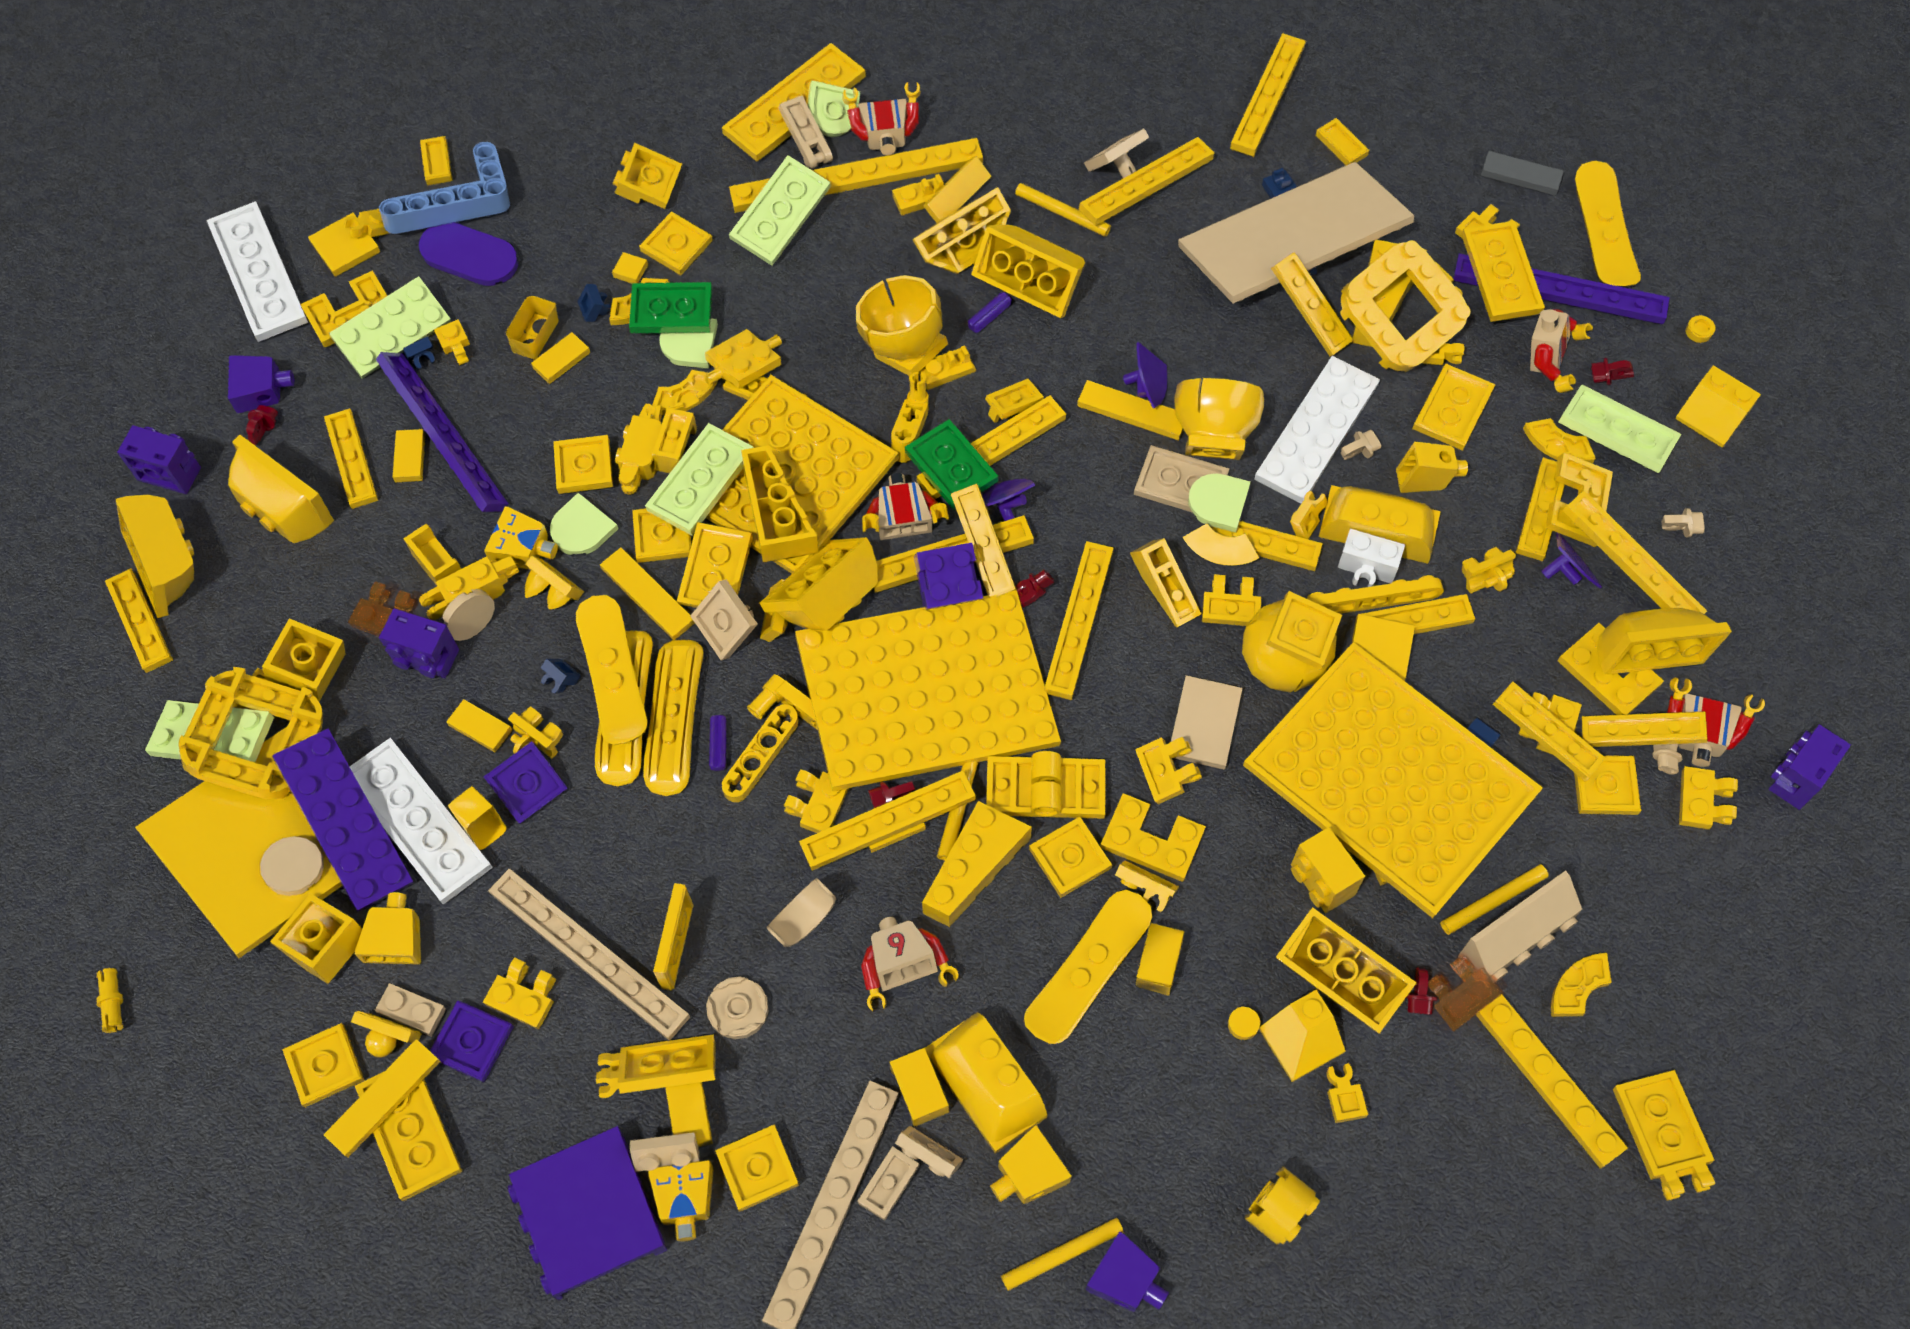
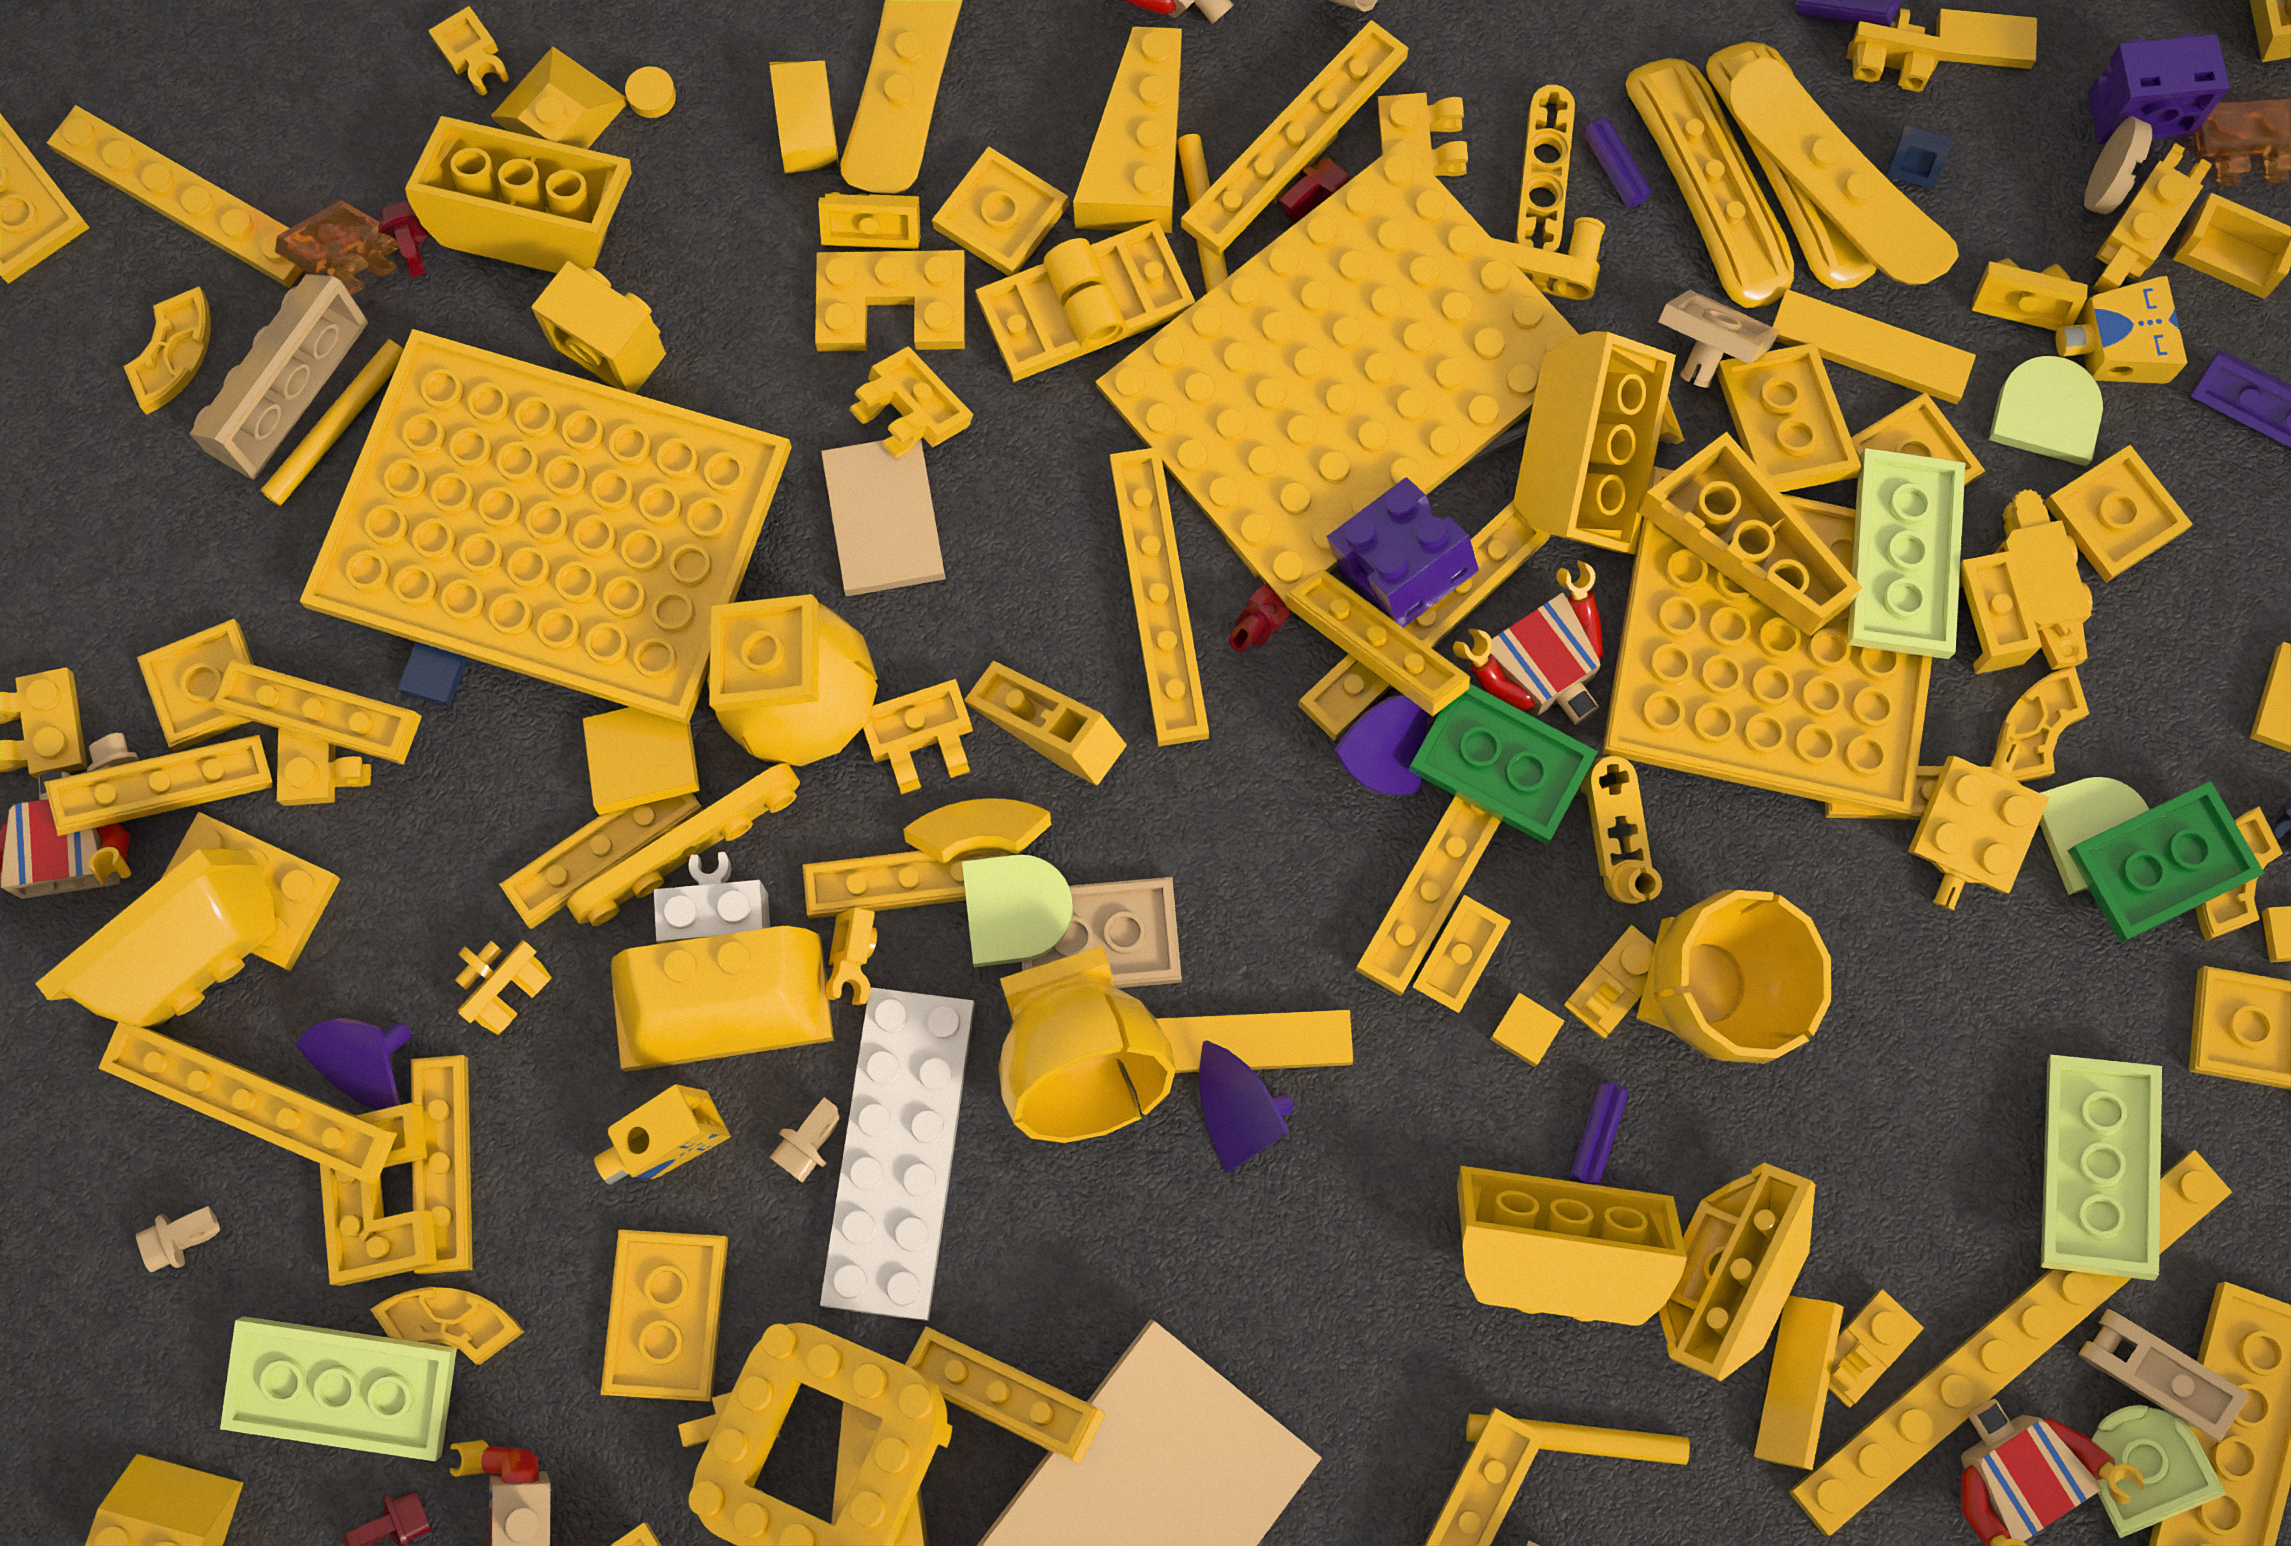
camera: 155 degrees right, 10 degrees up
(998, 364) = (1527, 1030): none -> yellow tile

